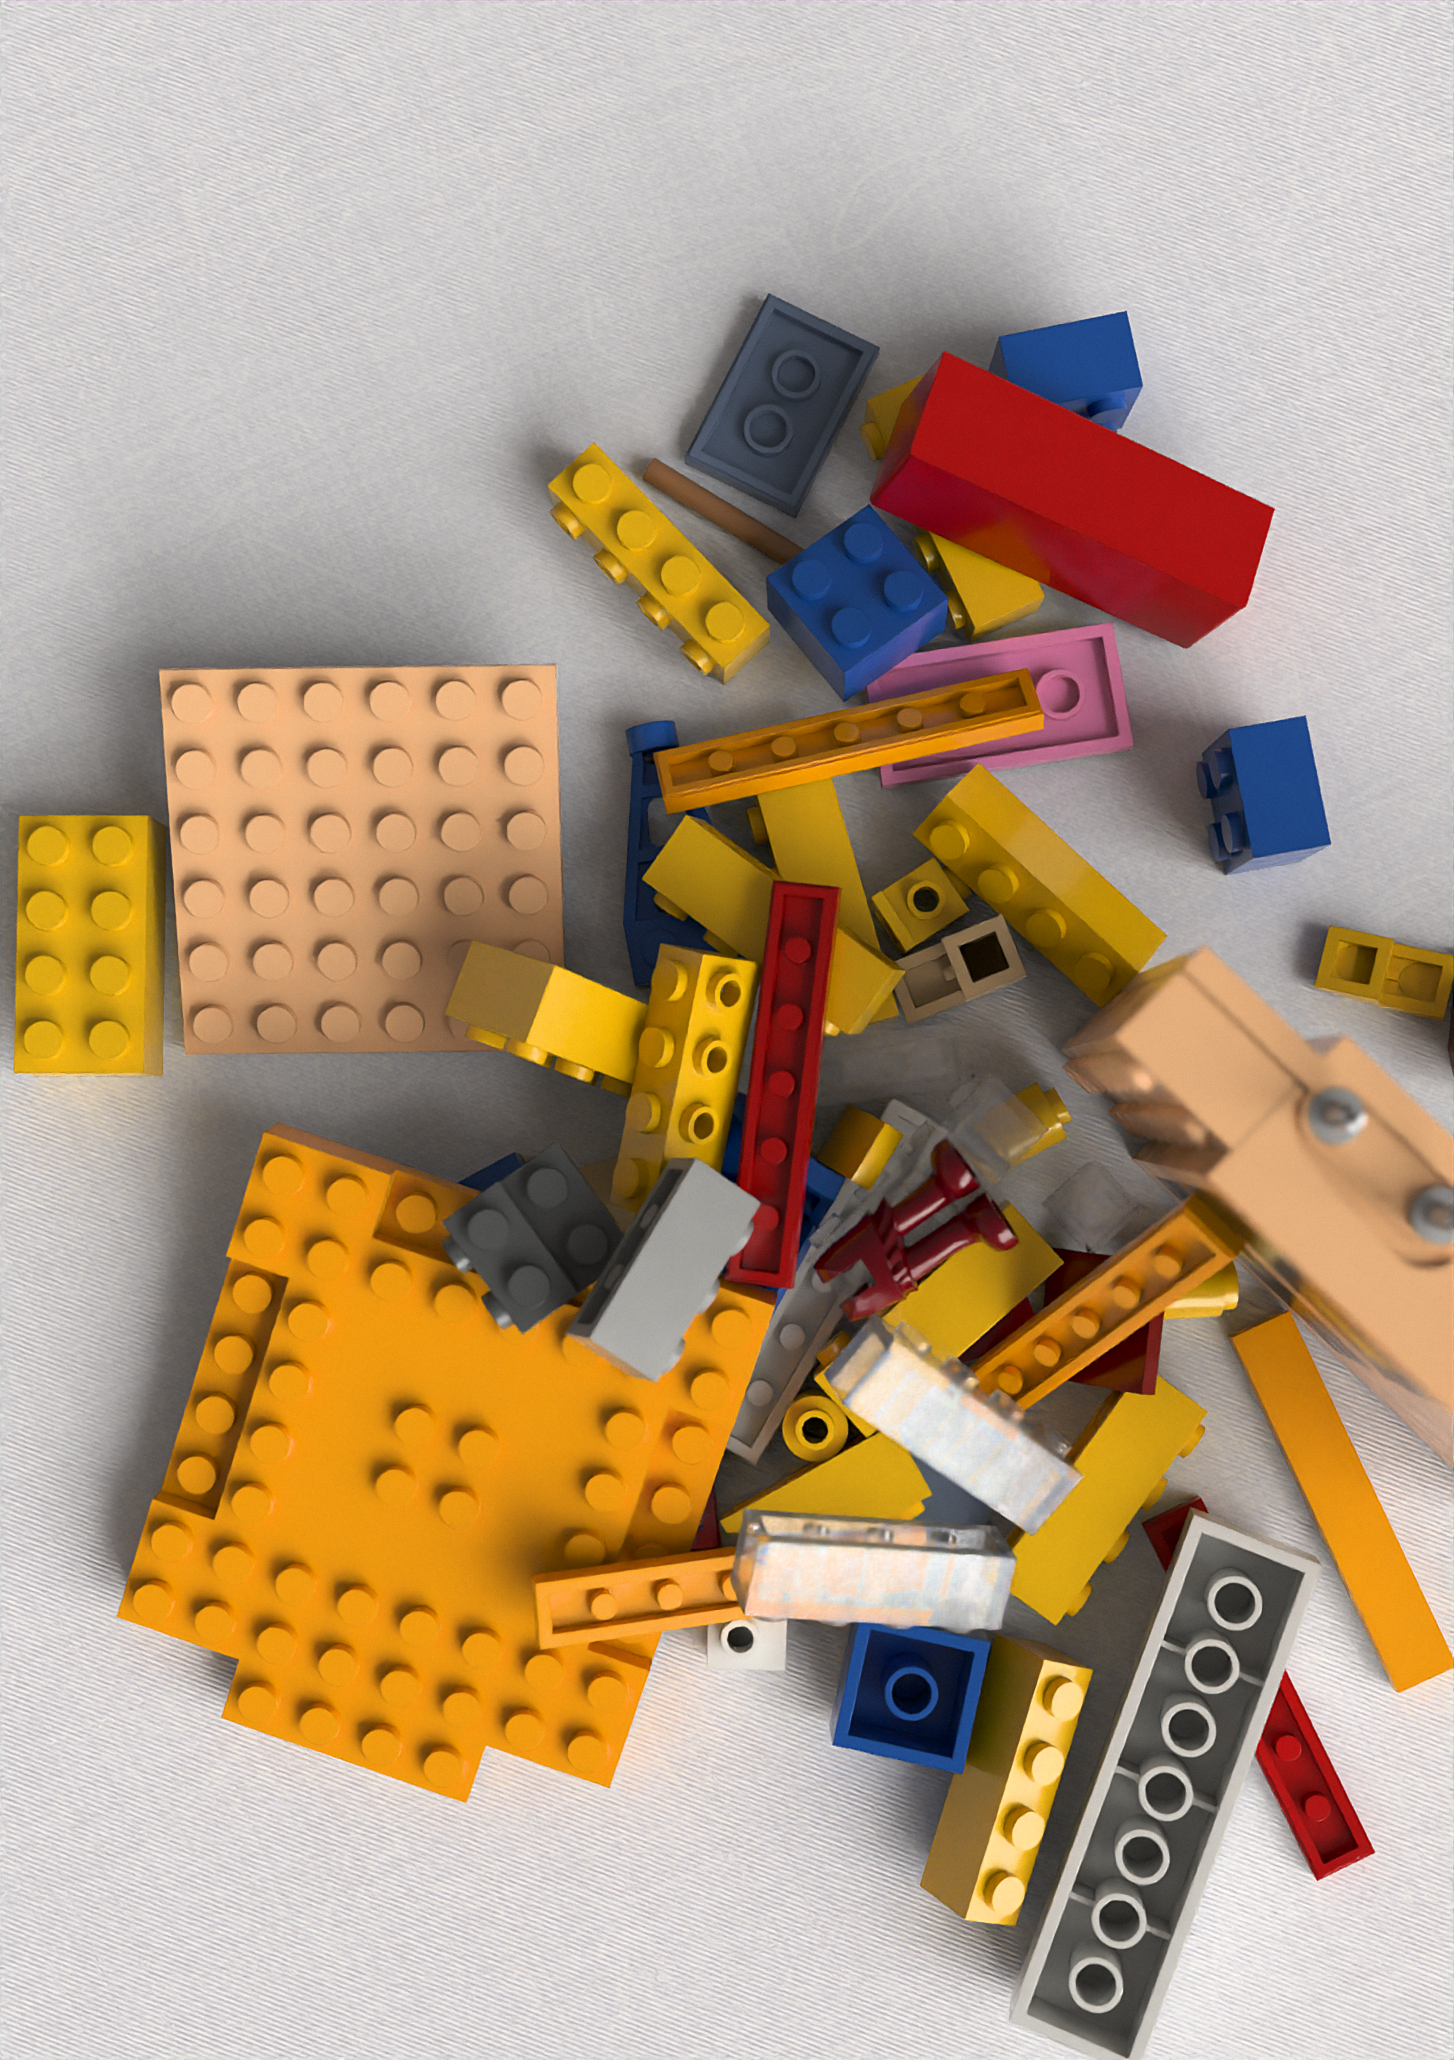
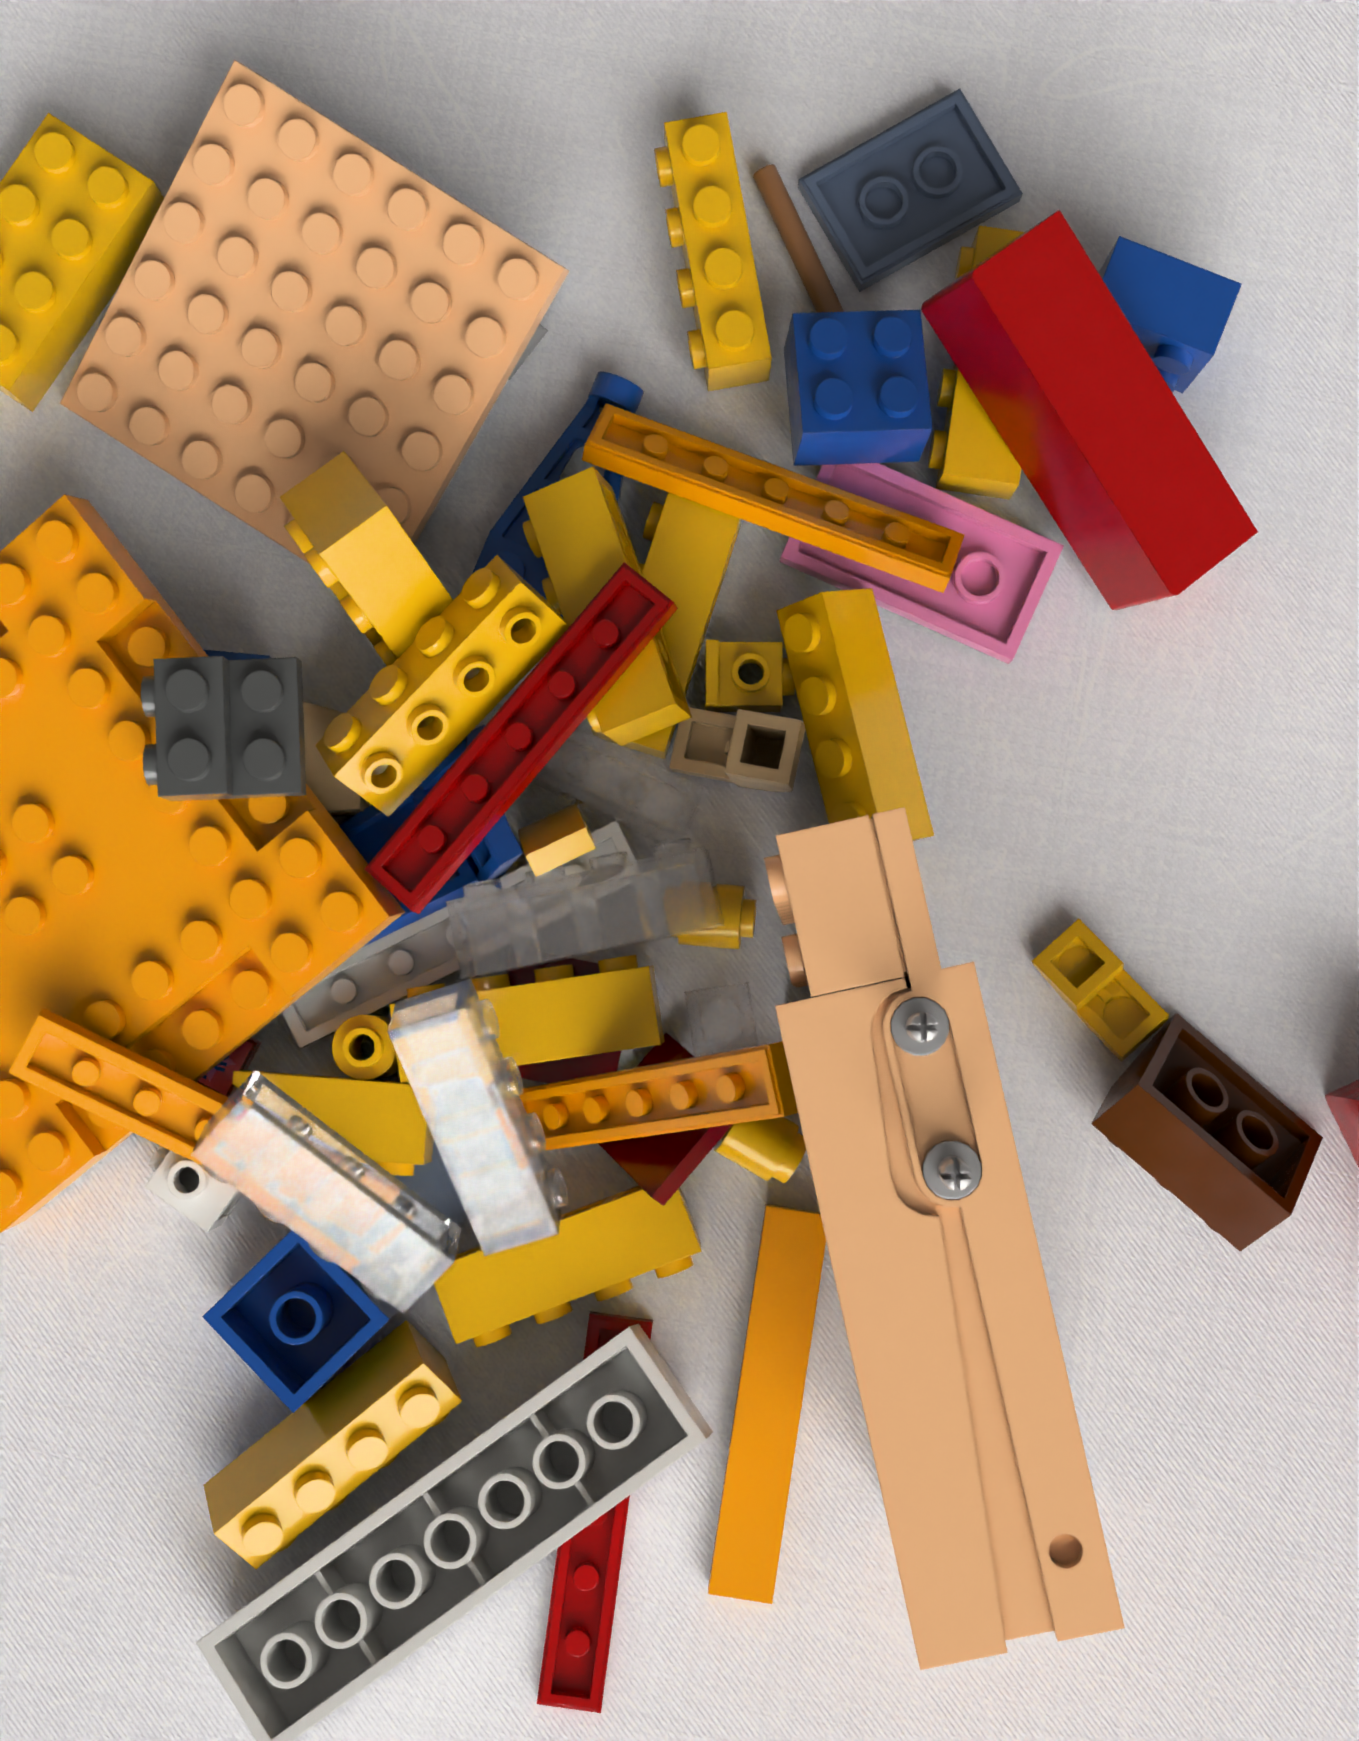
camera: 30 degrees right, 0 degrees up
(665, 1269) = (312, 821): light grey brick -> none
(880, 1240) = (515, 919): dark red piece -> none
(1263, 796) = (1091, 770): blue brick -> none

